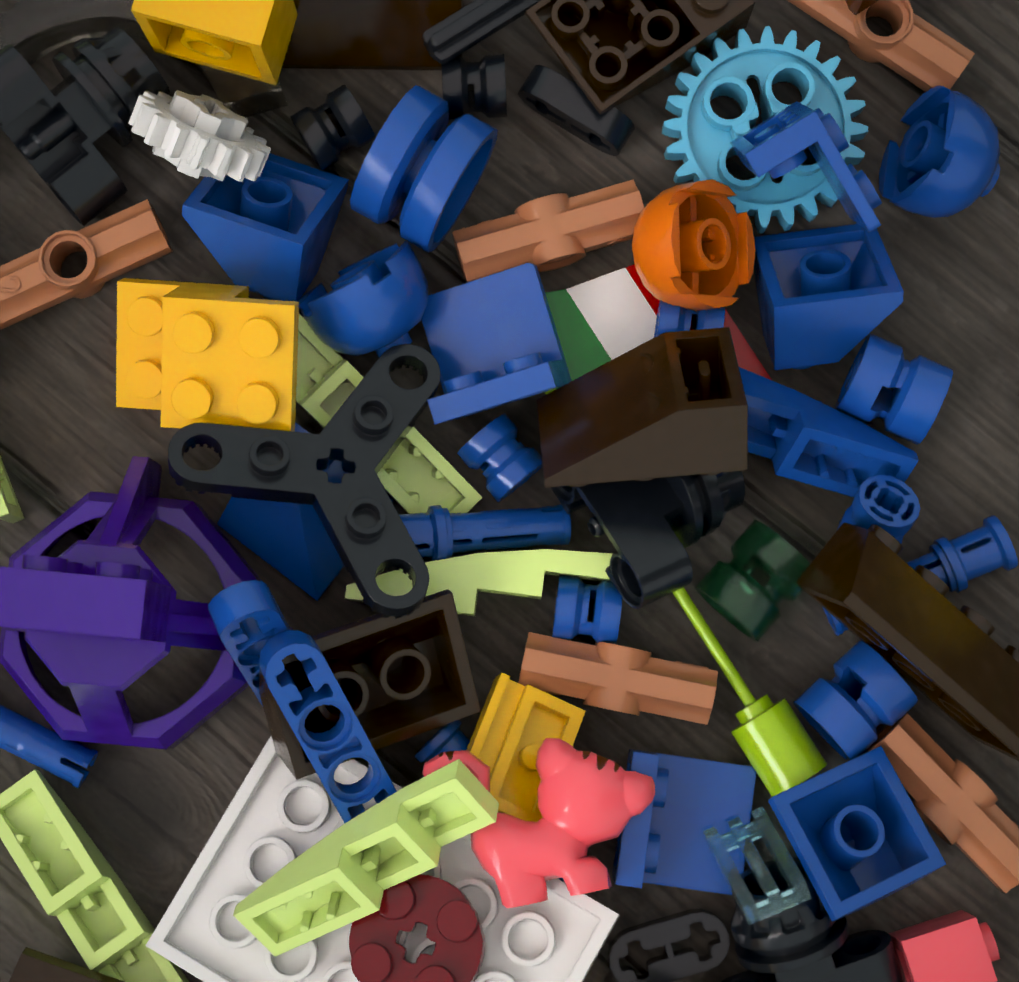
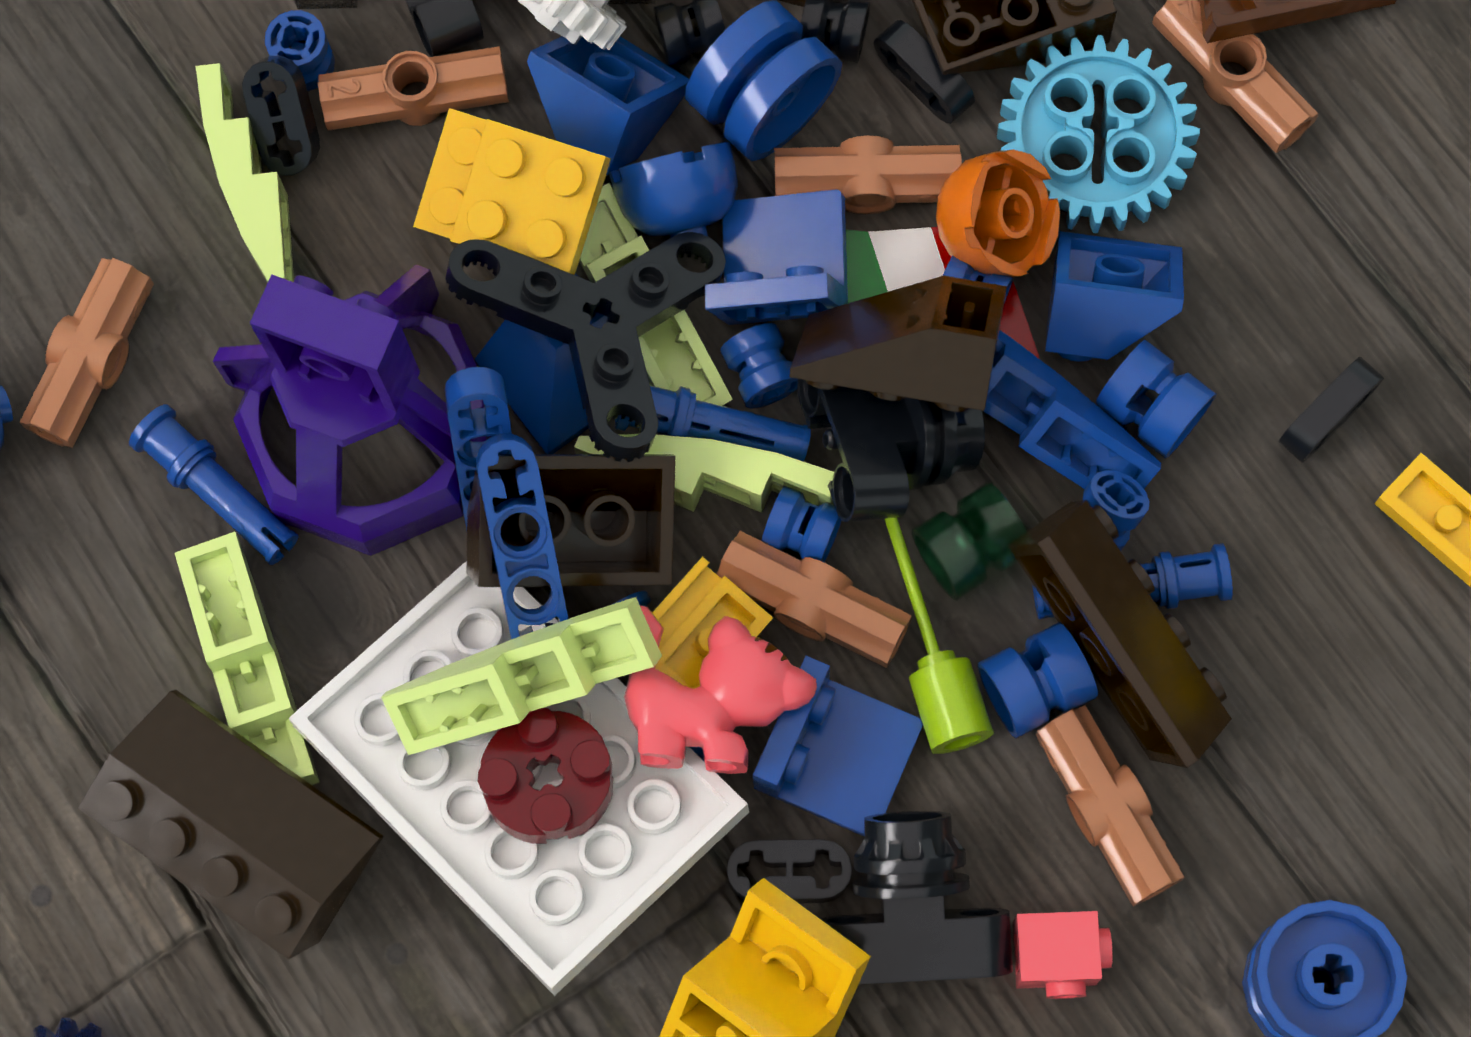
camera: 20 degrees right, 10 degrees down
(742, 837) = (892, 781): clear light blue tile -> none
(779, 145) = (1098, 135): blue bracket -> none
(857, 833) = (1002, 799): blue slope -> none
(944, 156) = (1263, 199): blue cylinder -> none

